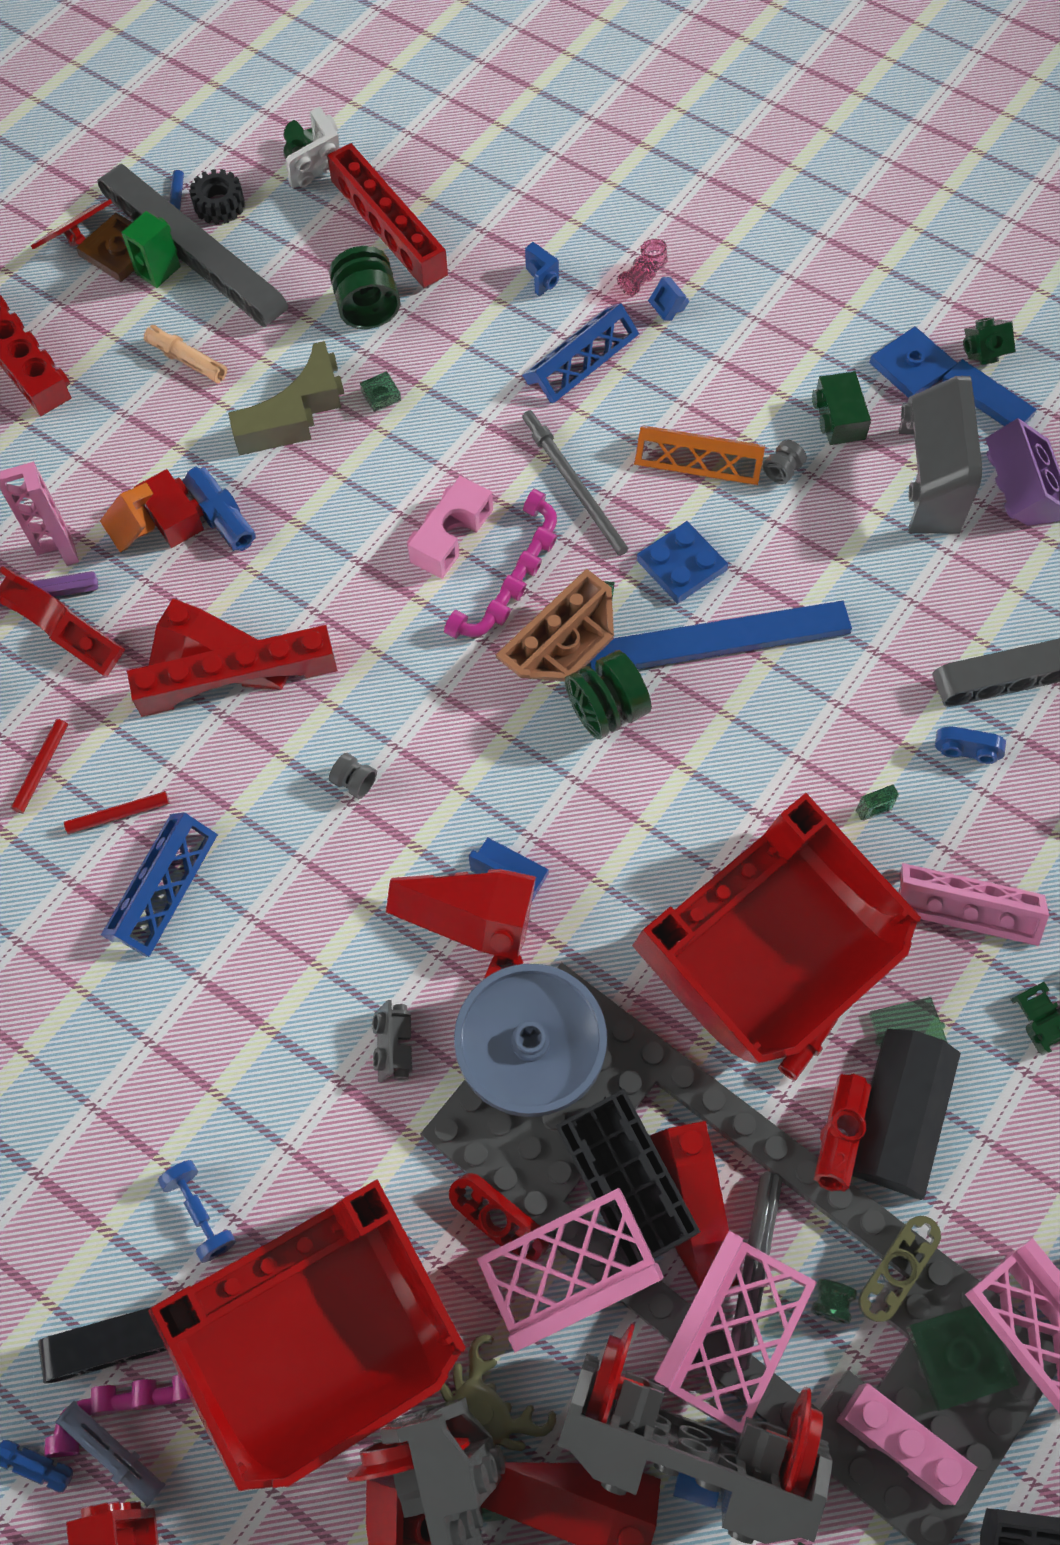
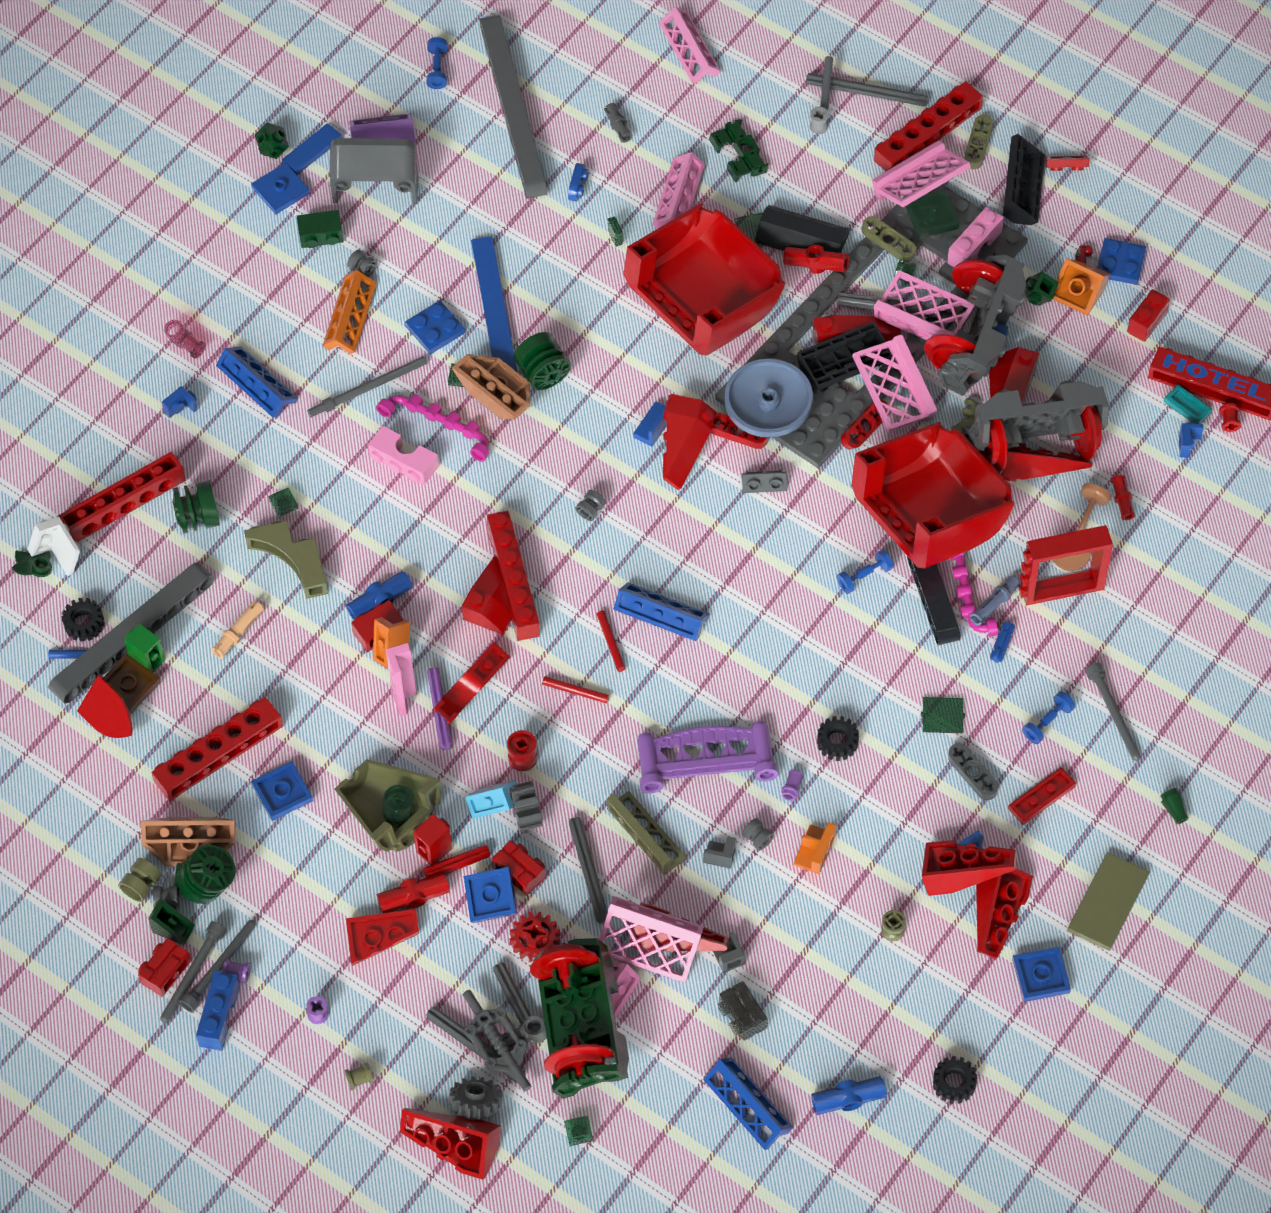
camera: 90 degrees left, 5 degrees down
(668, 299) = (215, 325): blue tile -> none

